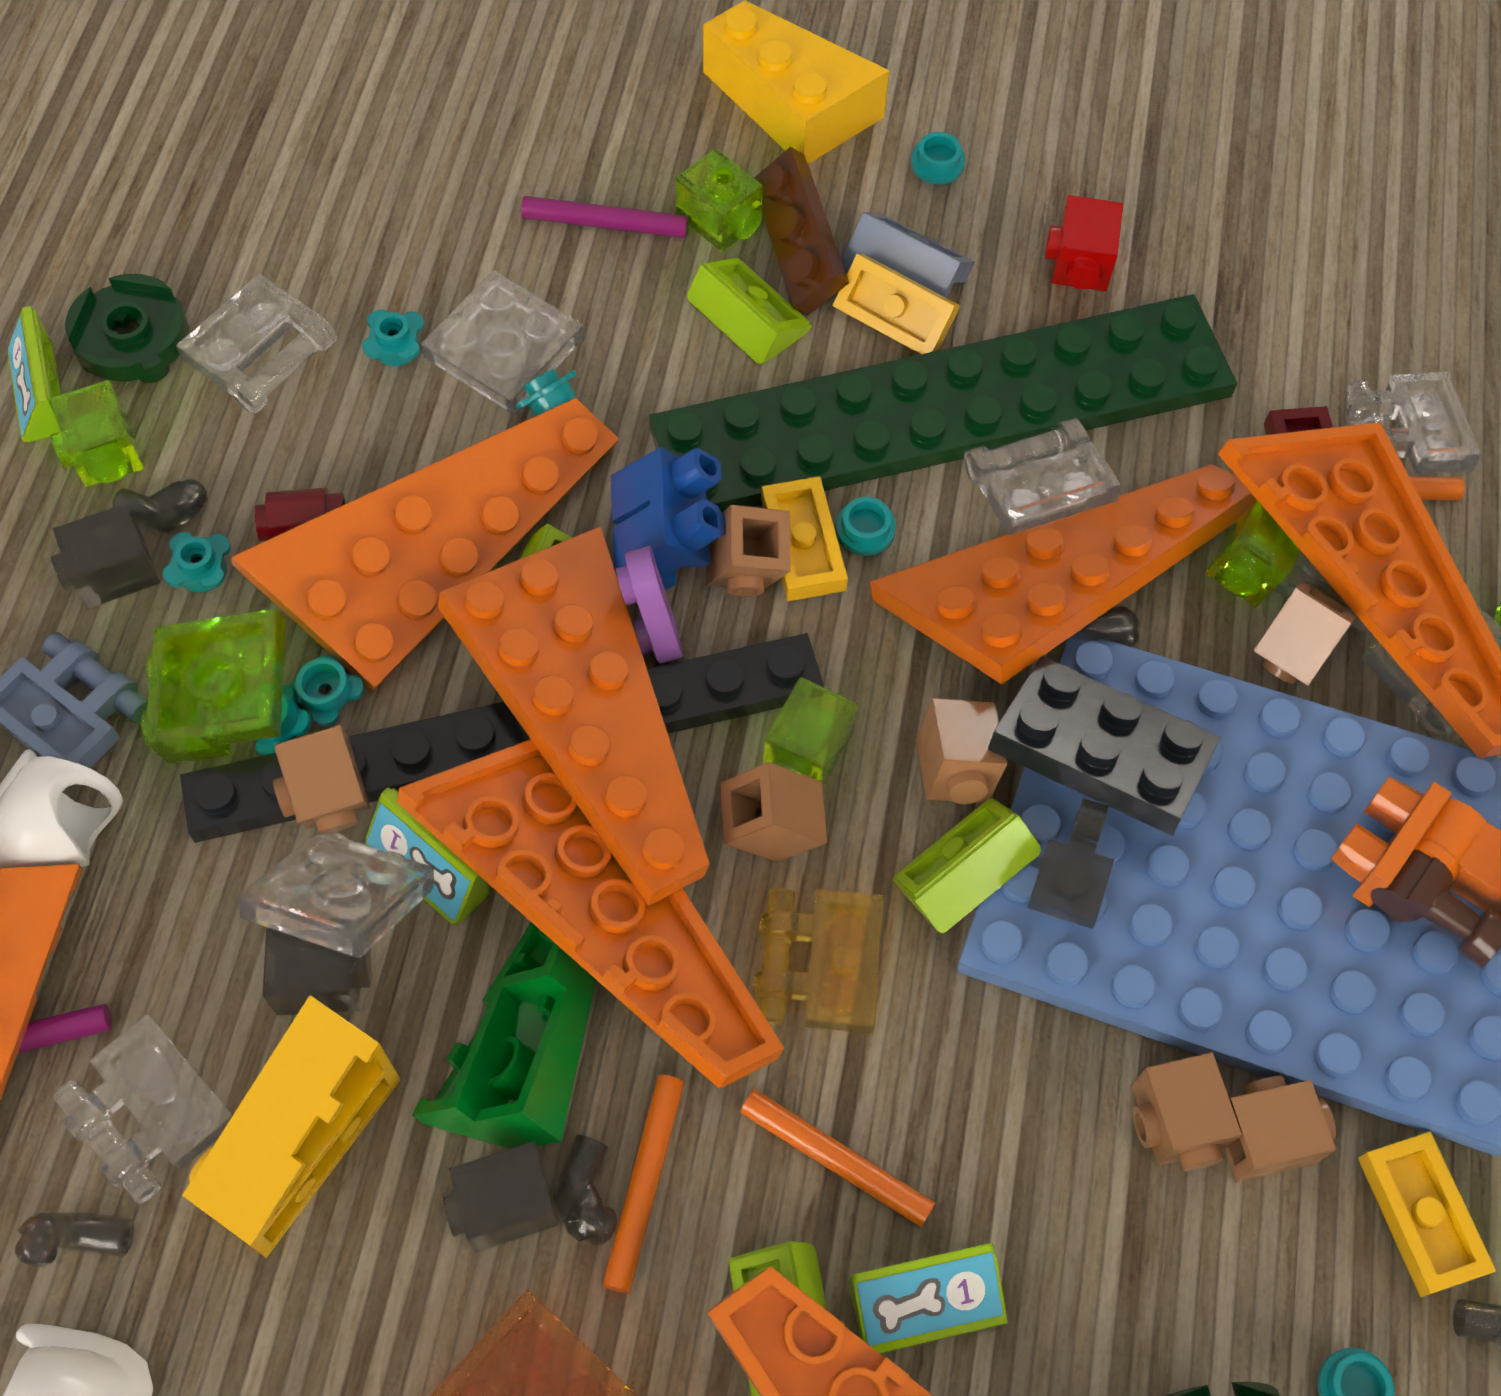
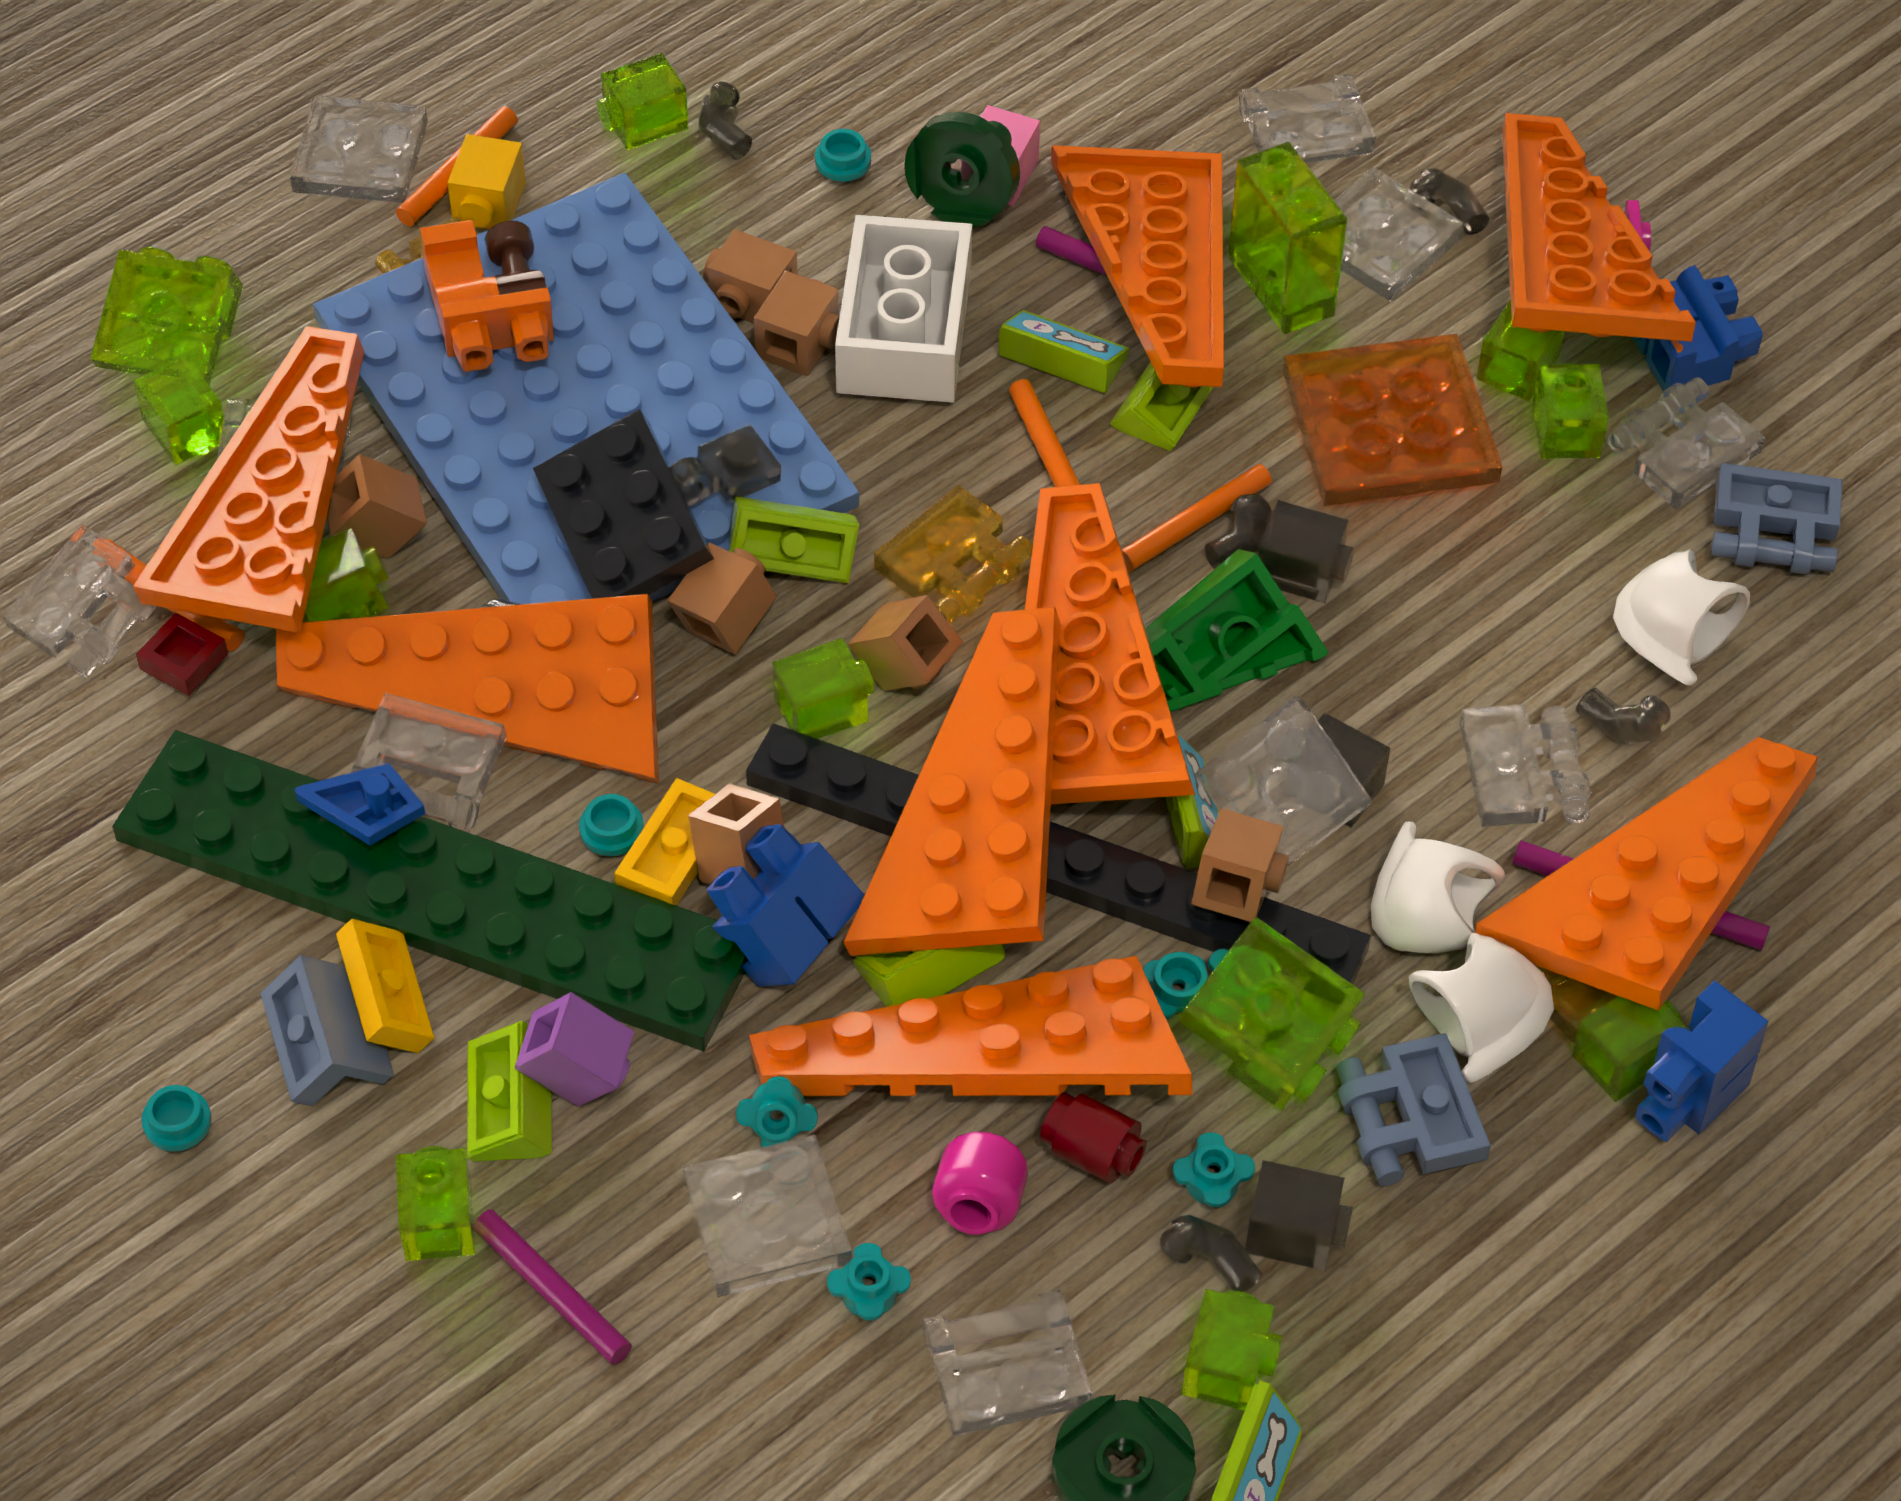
camera: 140 degrees left, 10 degrees down
(152, 874) = (1424, 900): none -> white piece
(292, 1127) = (1420, 669): yellow wedge -> none
(361, 433) = (980, 1182): none -> dark pink head
(643, 585) = (862, 838): medium lavender plate -> none
(718, 331) = (575, 1050): none -> medium lavender brick
(792, 80) = (236, 1281): yellow wedge -> none
(800, 232) = (391, 1121): reddish brown plate -> none
(1039, 393) = (364, 802): none -> blue piece
(1085, 243) = (151, 926): red brick -> none
(1100, 1191) = (903, 308): none -> white brick
(1426, 1214) = (705, 192): yellow plate -> none

